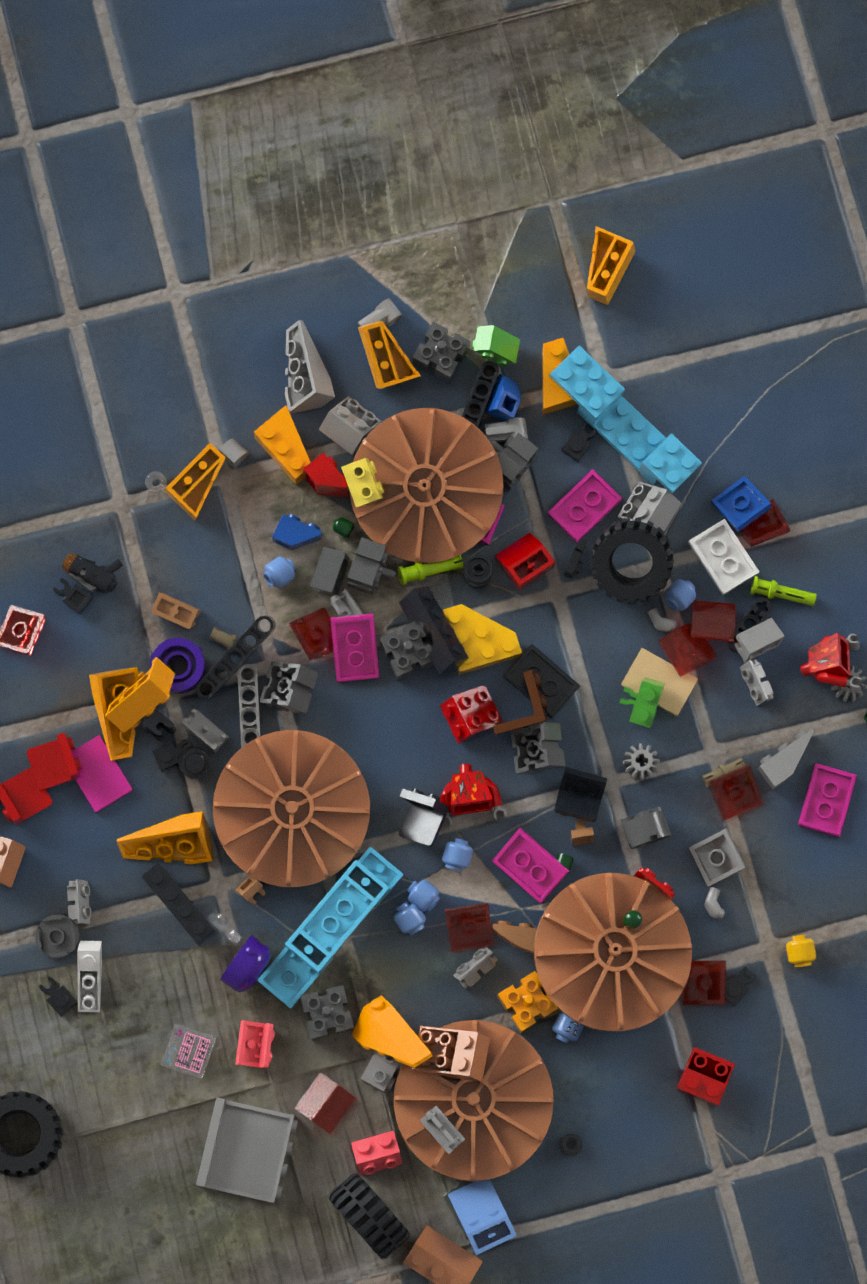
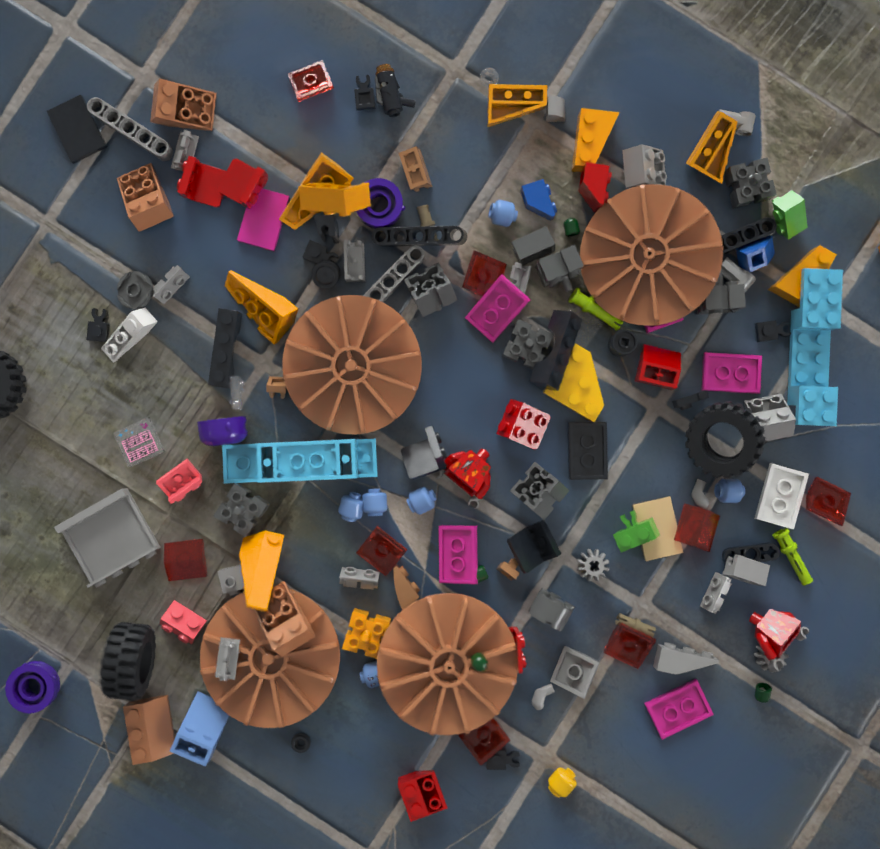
camera: 50 degrees right, 10 degrees up
(307, 377) = (651, 112): light grey wedge -> none
(362, 482) = (613, 209): light yellow brick -> none
(538, 702) = (569, 465): reddish brown bracket -> none
(713, 620) = (732, 528): clear red slope -> none
(741, 504) = (829, 476): blue plate -> none

